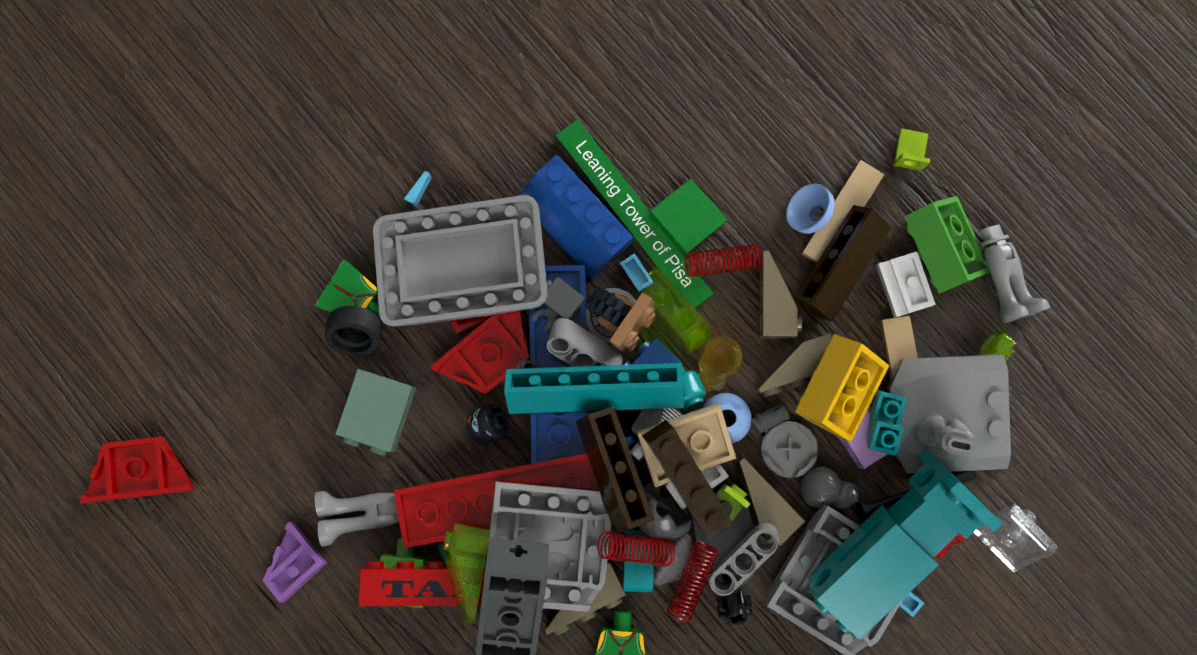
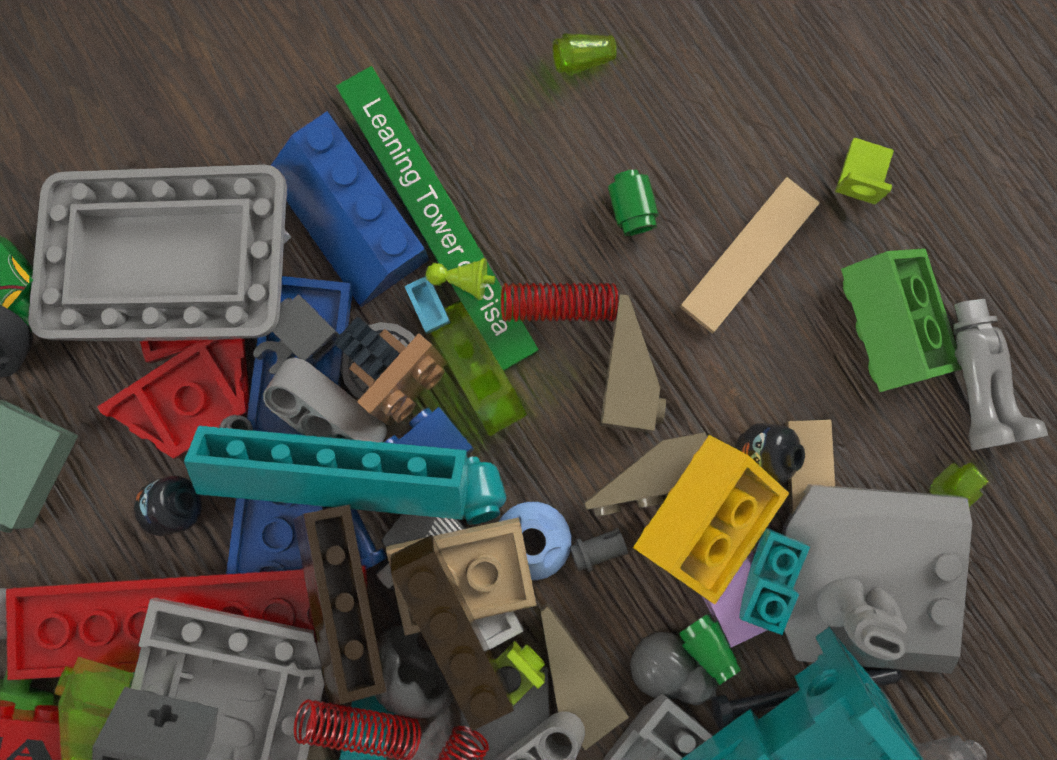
camera: 10 degrees right, 0 degrees up
(417, 191) = (122, 141): medium azure piece -> none
(662, 252) = (468, 277): none -> lime piece
(687, 216) = (515, 230): green tile -> none
(715, 93) = (582, 51): none -> clear neon green cone
(718, 361) = (531, 454): clear yellow hair -> none
(763, 189) = (633, 202): none -> green brick
(789, 449) = (622, 600): light grey tile -> none
(805, 204) = (692, 236): light blue piece -> none
(843, 262) = (740, 327): dark brown brick -> none
(851, 471) = (710, 648): none -> green cone
(876, 338) = (774, 449): none -> black head
(905, 284) = (830, 372): white plate -> none

